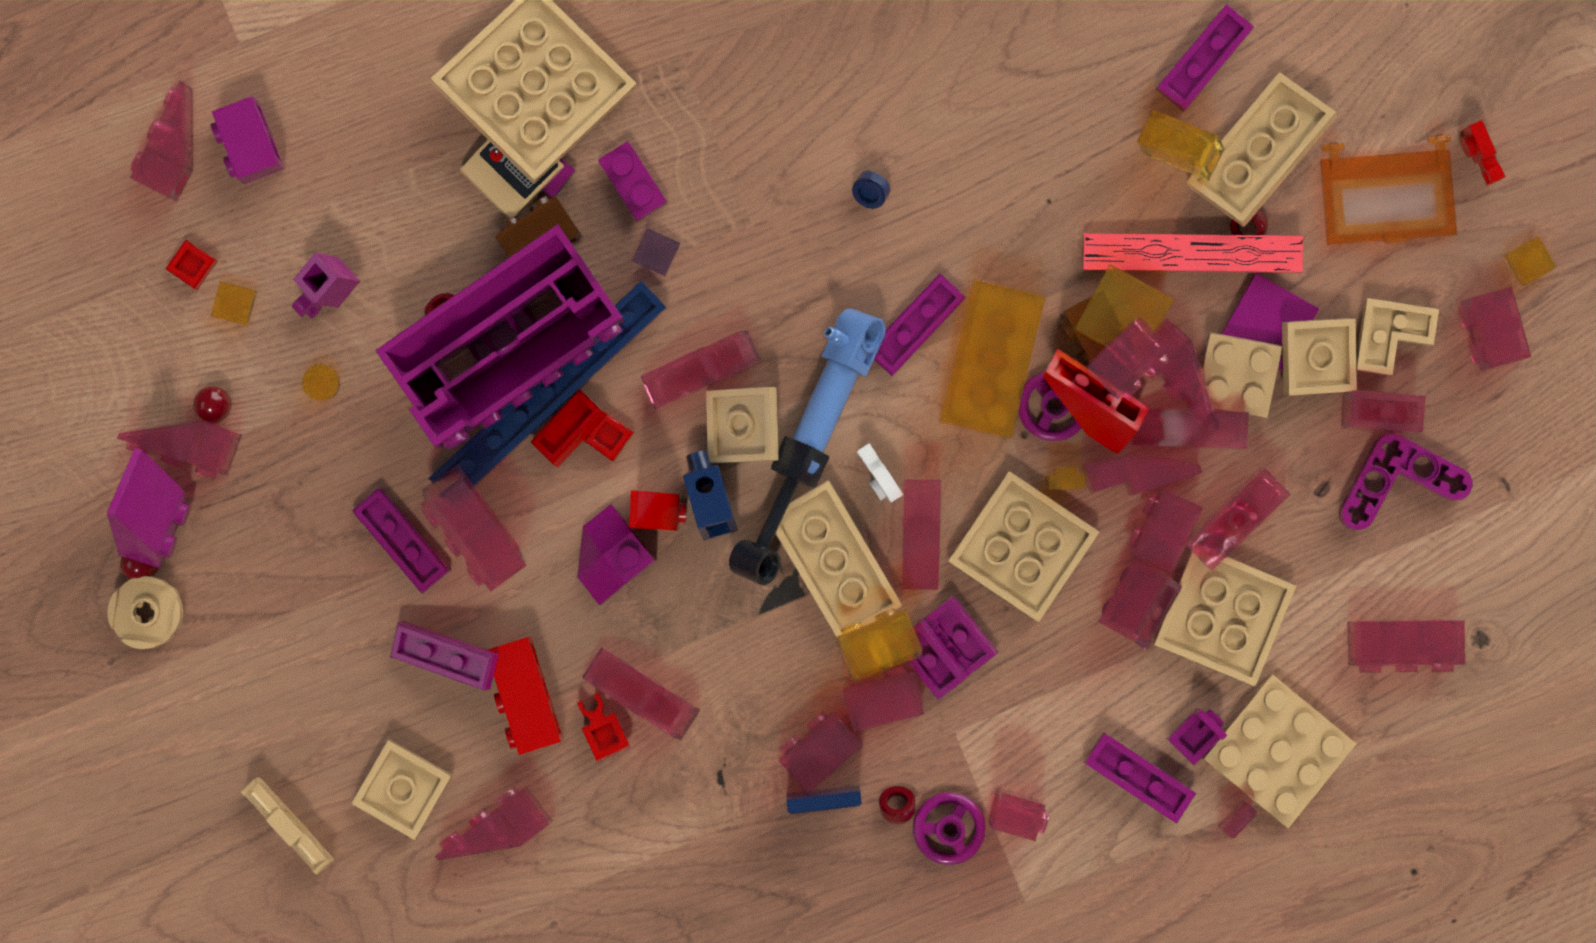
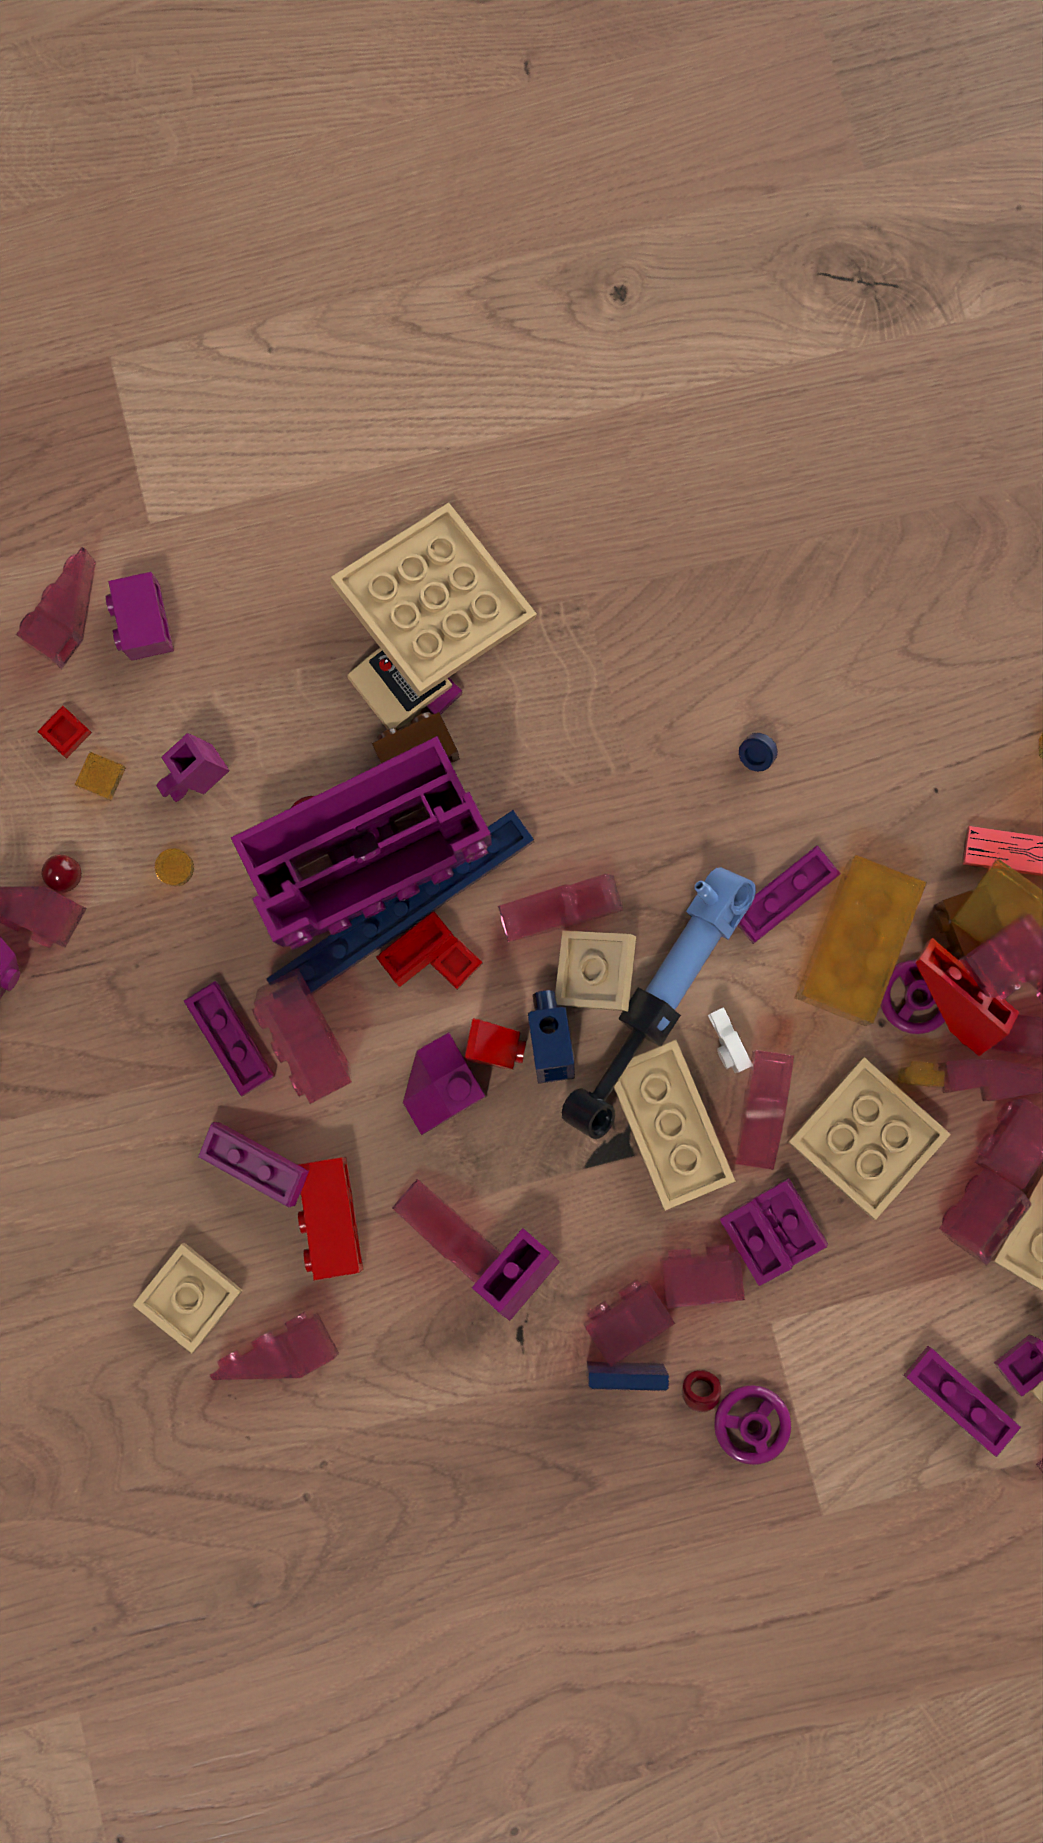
camera: 15 degrees right, 5 degrees down
(287, 825) = (63, 1318): tan piece -> none
(604, 733) = (406, 1270): red plate -> none
(632, 181) = (518, 711): magenta plate -> none
(656, 252) = (531, 784): clear purple tile -> none
(707, 722) = (516, 1274): none -> magenta brick
(878, 645) = (706, 1219): clear yellow brick -> none
(1018, 814) = (830, 1423): clear pink brick -> none

